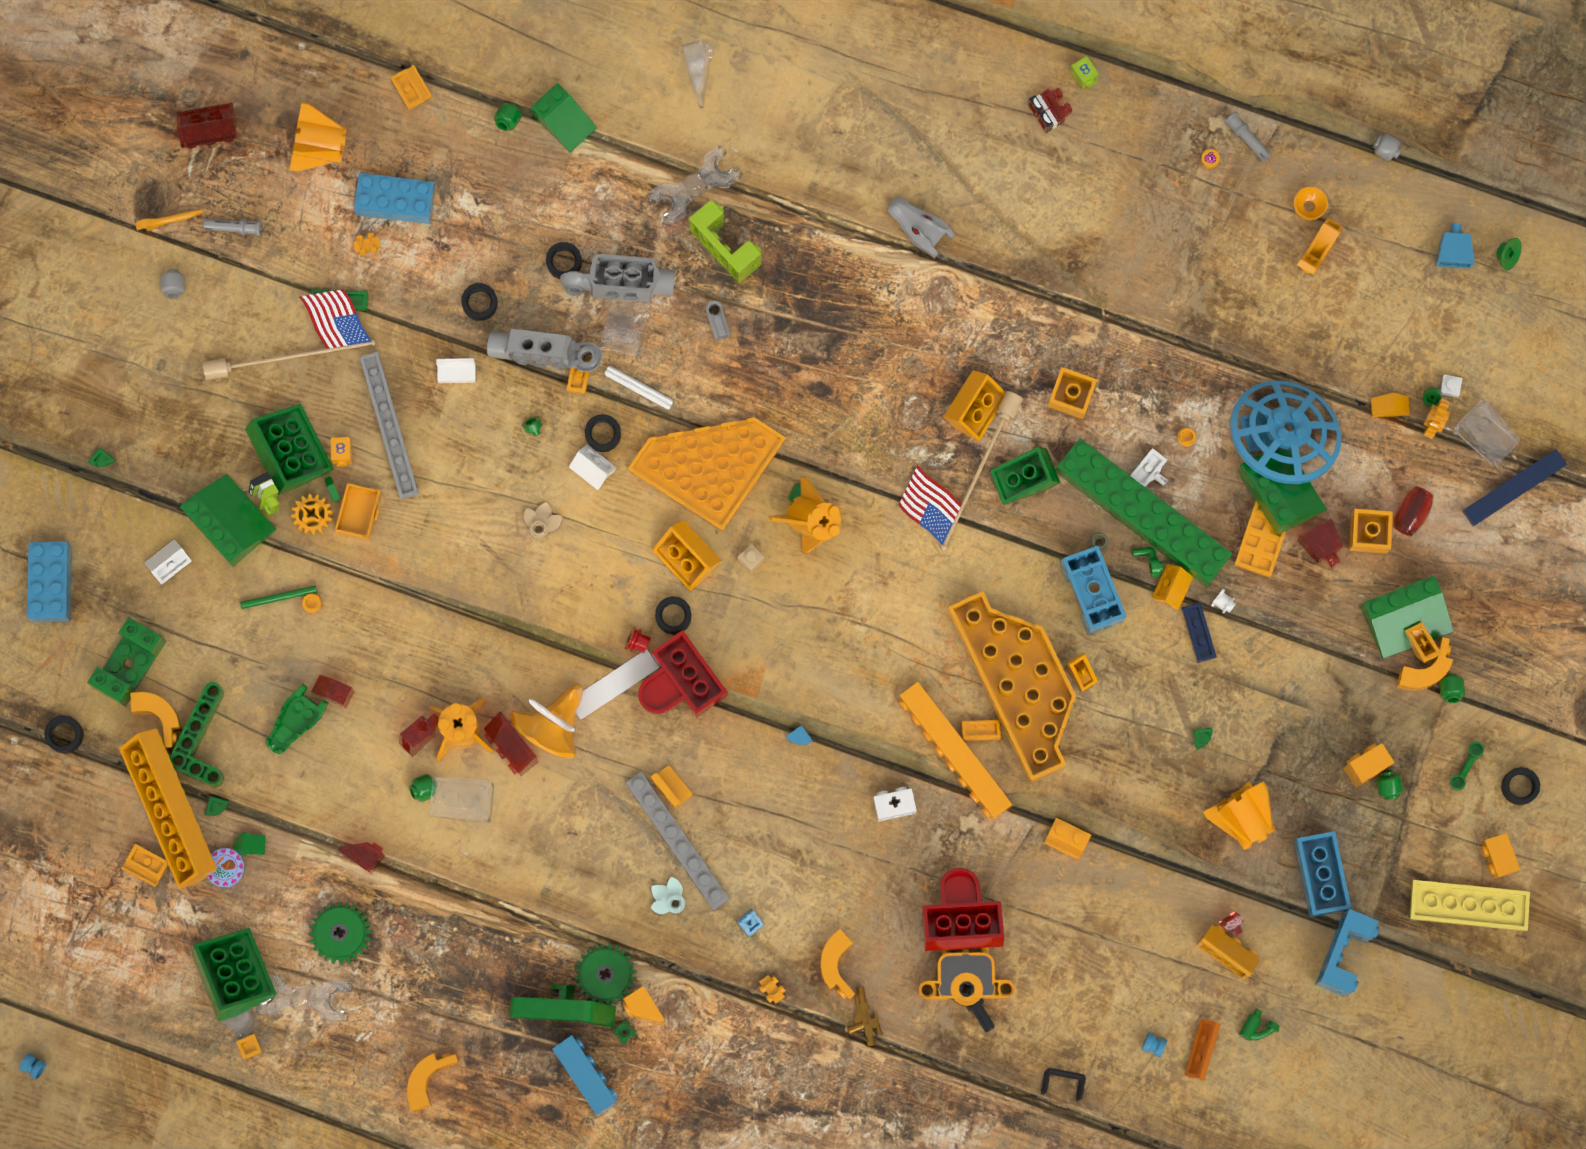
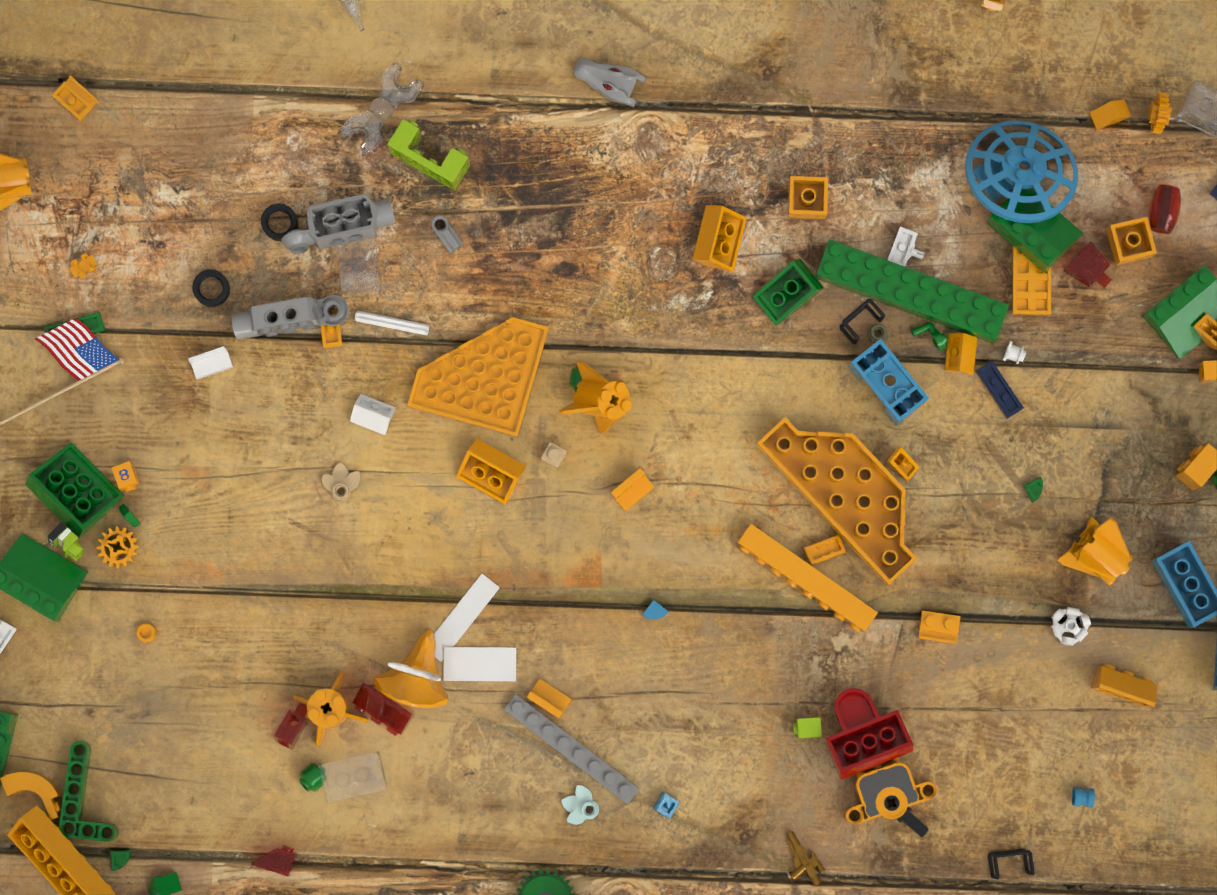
camera: 20 degrees left, 5 degrees up
(278, 597) = (112, 637): green bar -> none
(295, 718) = (167, 751): green animal -> none
(333, 691) = (195, 711): clear red slope -> none
(358, 512) = (162, 530): light orange container -> none
(389, 426) = (163, 436): light grey plate -> none
(394, 198) = (95, 213): dark azure brick -> none
(507, 116) = (178, 98): green head -> none
(532, 425) = (302, 392): green tile -> none
(563, 117) = (232, 82): green slope -> none
(600, 419) = (370, 364): black tyre -> none
(616, 733) = (479, 664): none -> white sticker
(637, 641) = (470, 569): red piece -> none
(676, 601) = (493, 519): black tyre -> none
(681, 678) = (524, 593): red brick -> none
(769, 985) = (703, 859): light orange piece -> none
(815, 615) = (632, 490): none -> light orange panel
(831, 953) = (752, 815): light orange arch -> none
(904, 808) = (777, 643): white brick -> none
(909, 893) = (807, 727): none -> lime brick
(934, 505) = (708, 346): flag -> none
(1070, 523) = (858, 310): none -> black piece
(1186, 437) = (928, 205): light orange plate -> none
(1194, 878) = (1070, 625): none -> white piece
(1202, 1049) = (1129, 787): orange plate -> none
(1232, 922) = (1119, 658): clear red tile -> none
(1251, 1024) = (1167, 748): green plant -> none
(1432, 396) = (1147, 92): green tile -> none
(1451, 385) = (1161, 76): white plate -> none

